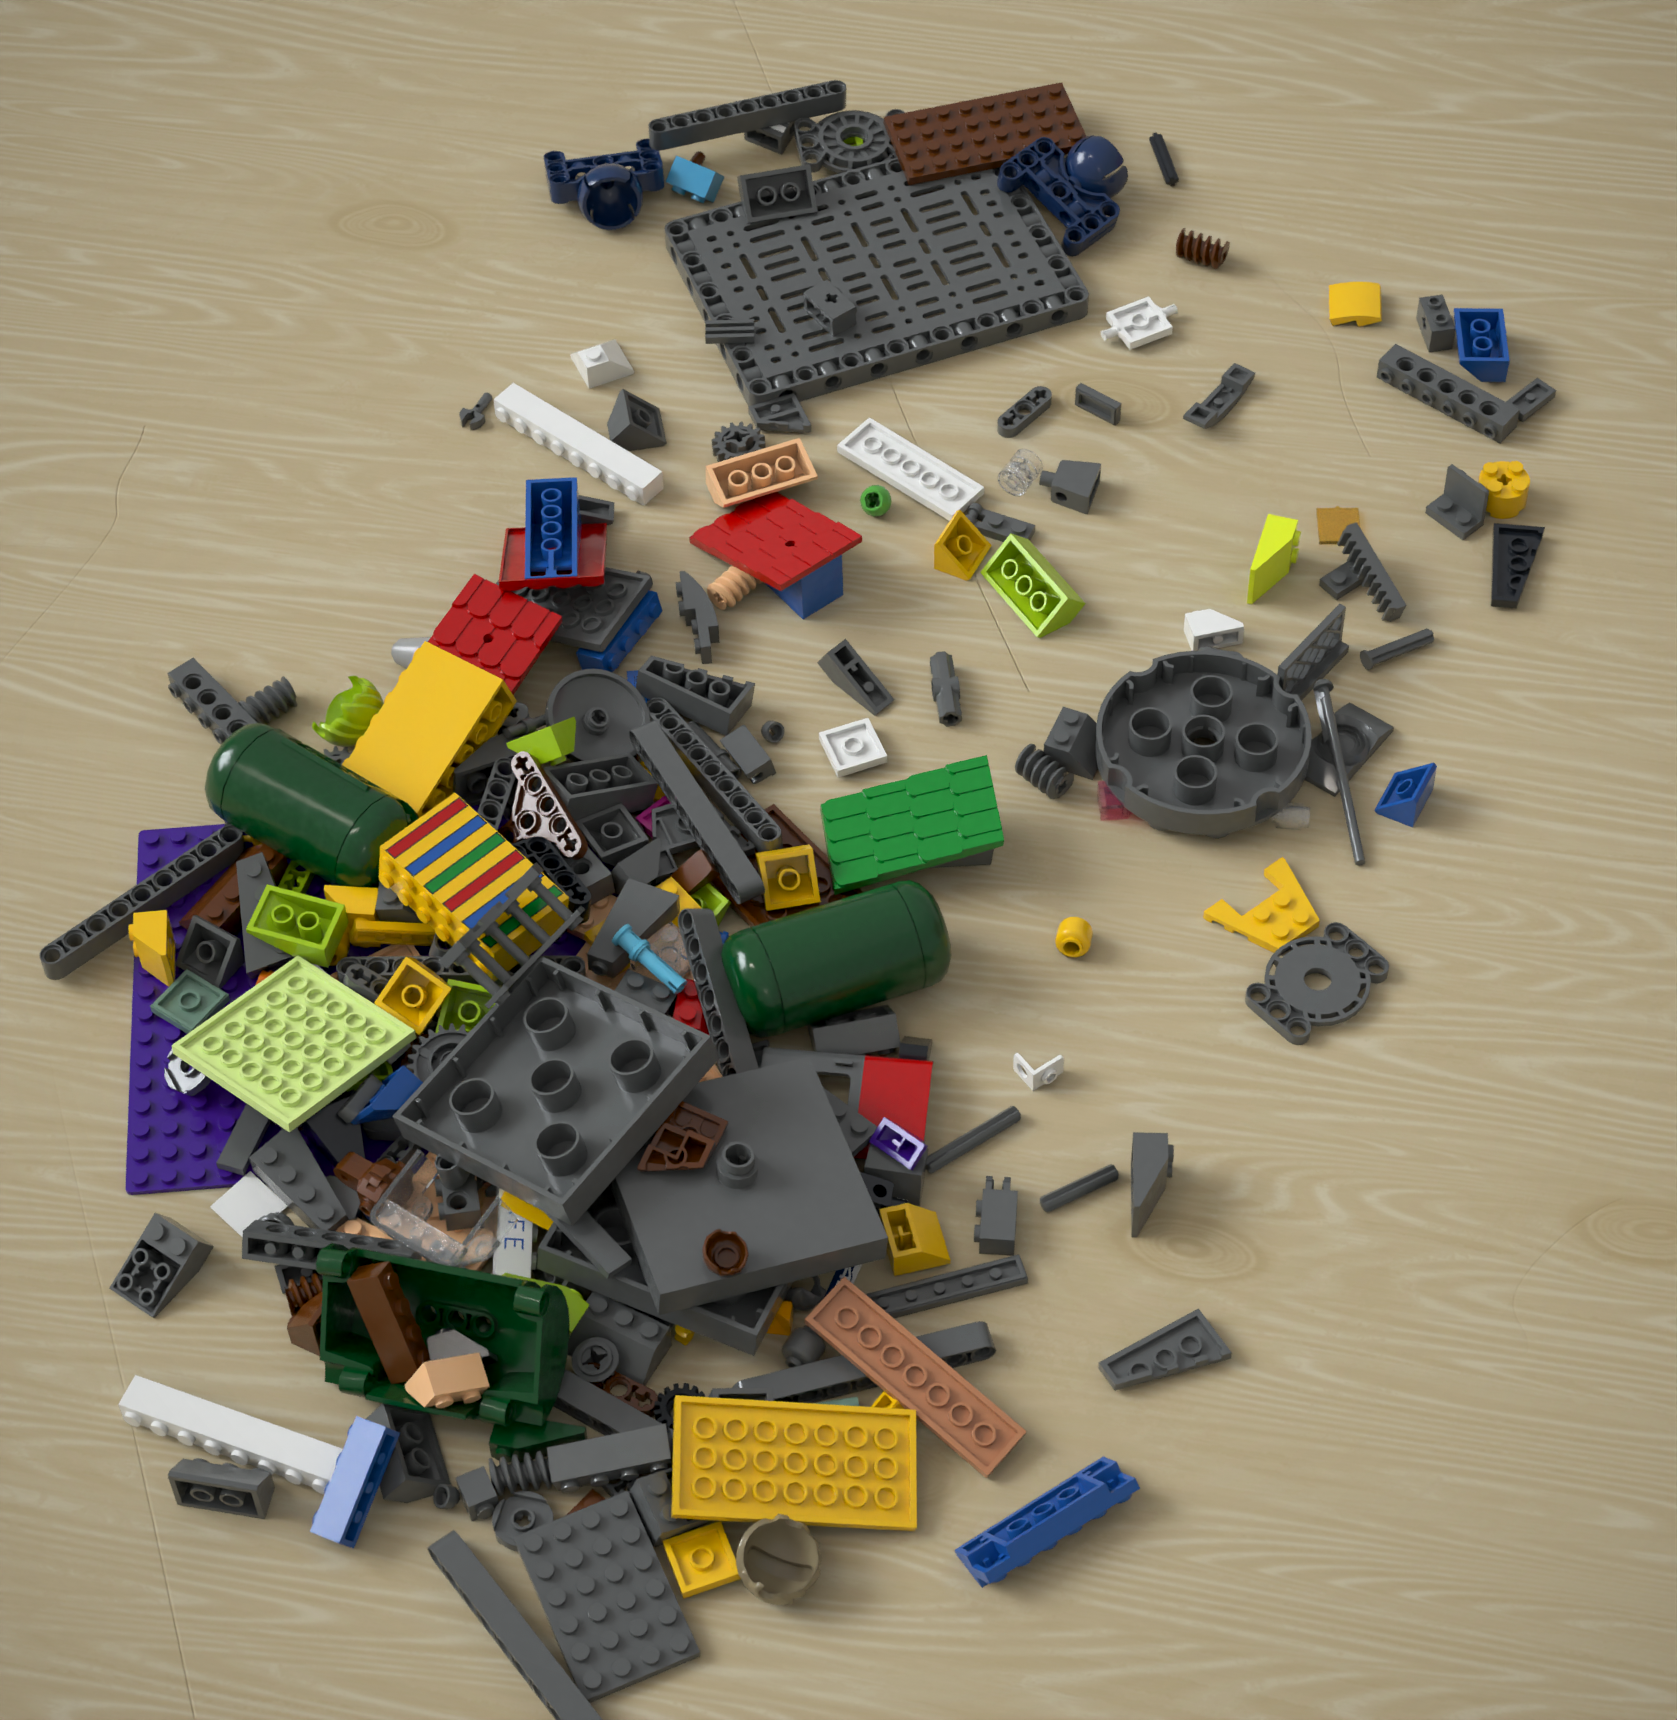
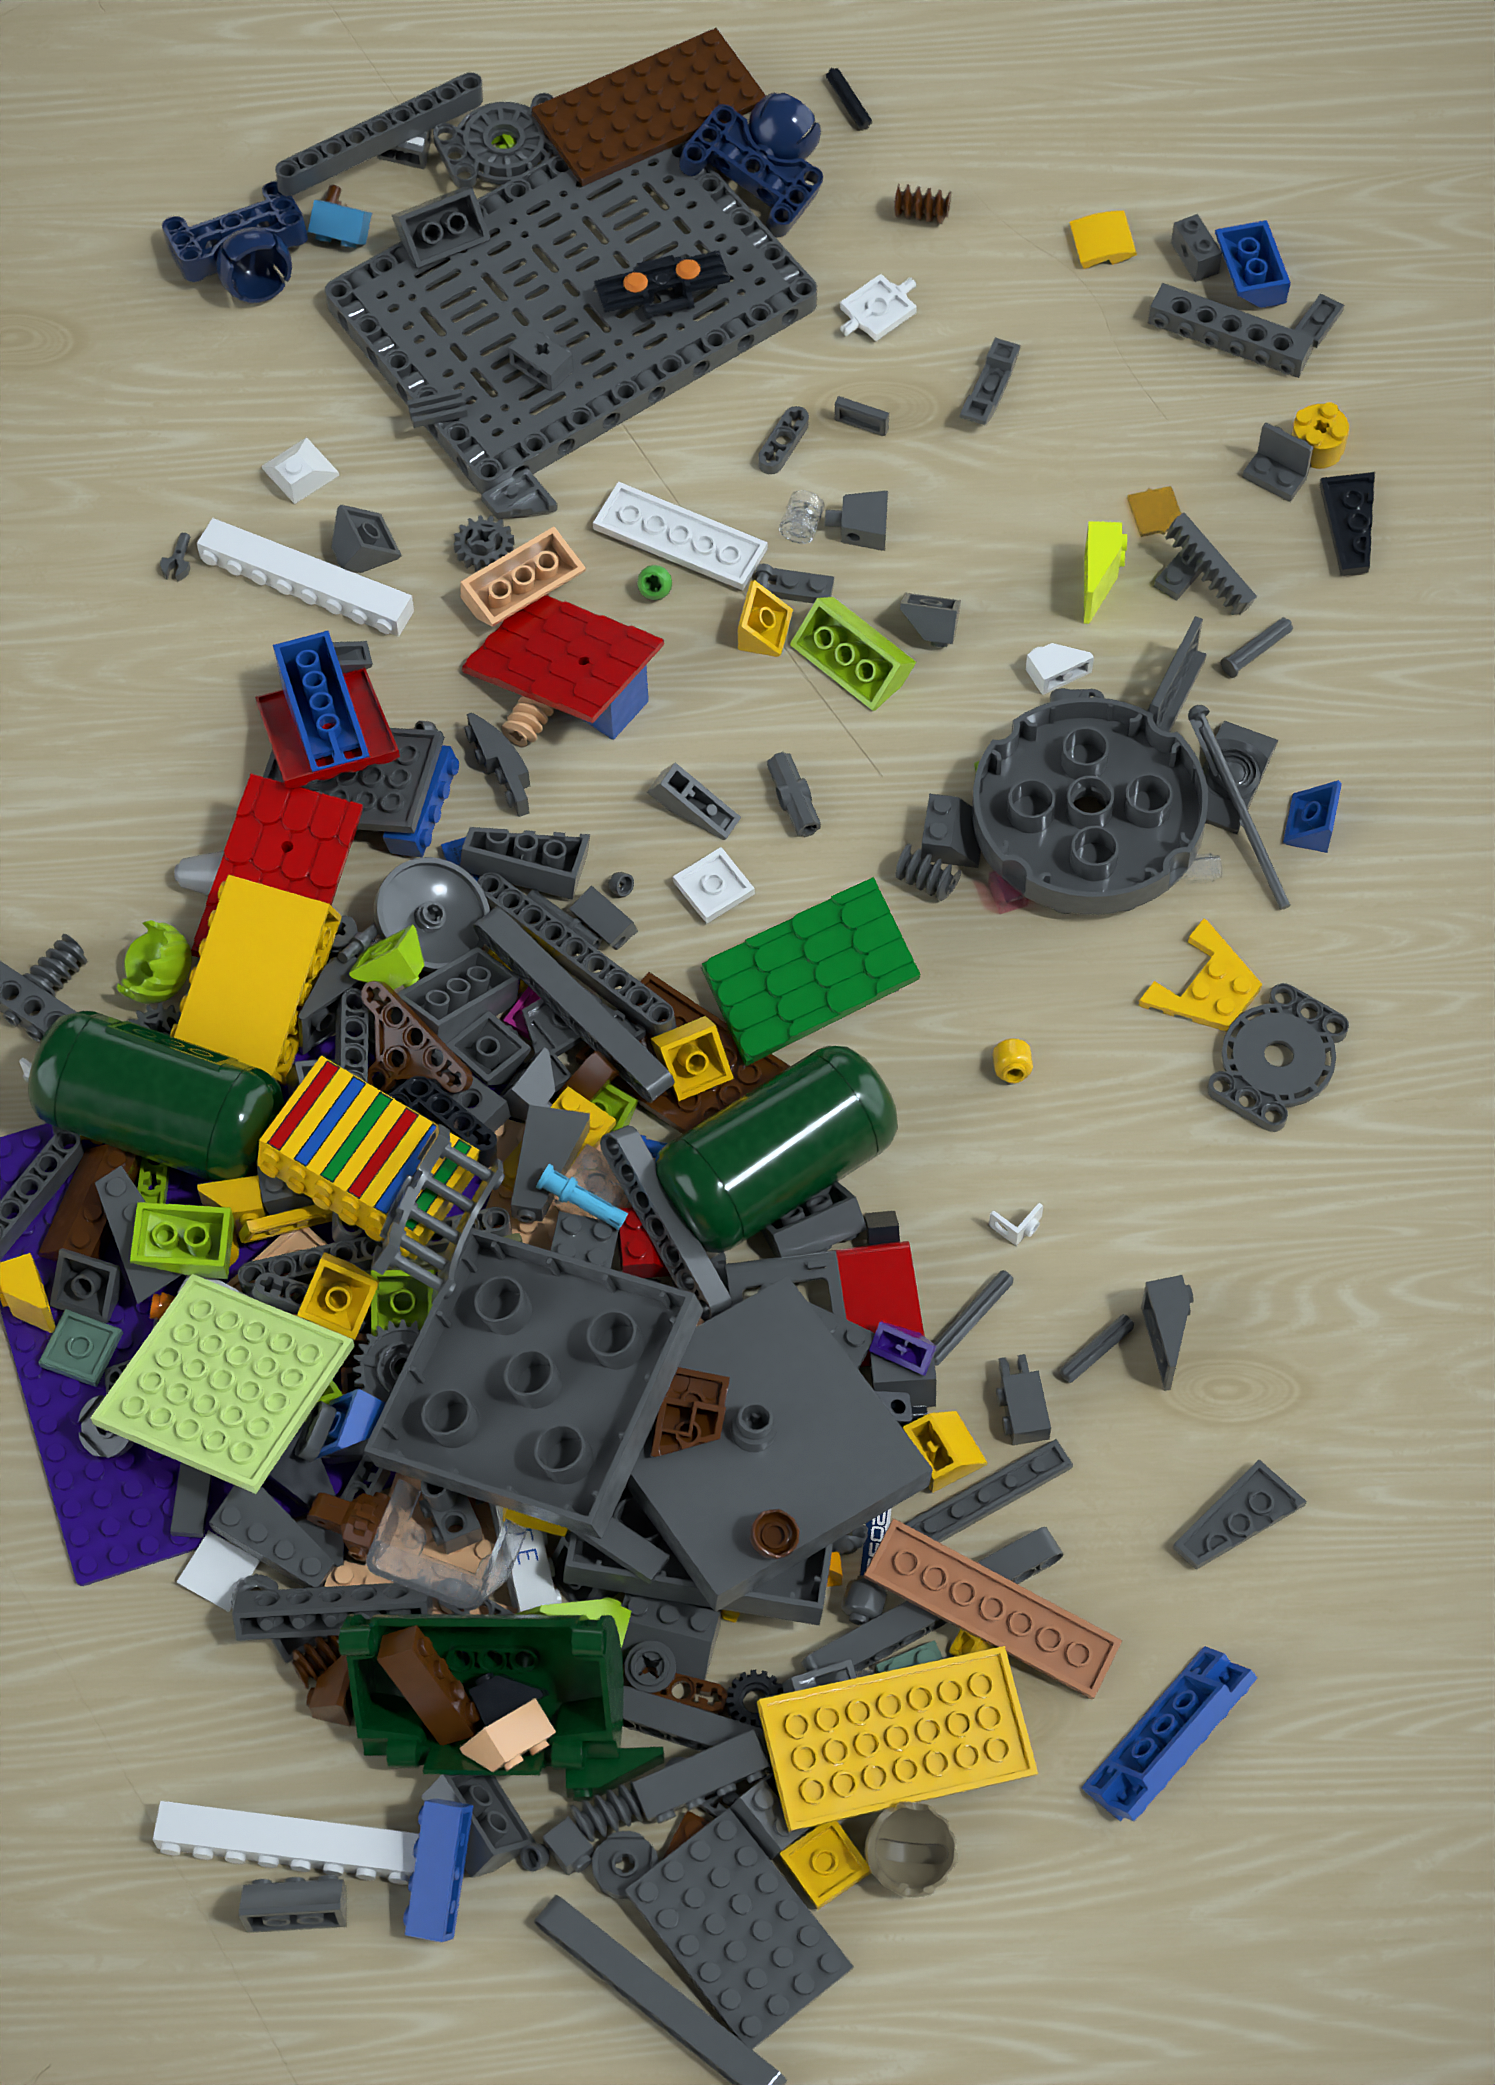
camera: 15 degrees left, 10 degrees up
(160, 1264) = (144, 1663): dark grey slope -> none
(943, 260) = (660, 274): none -> black piece
(1111, 572) = (932, 617): none -> dark grey slope

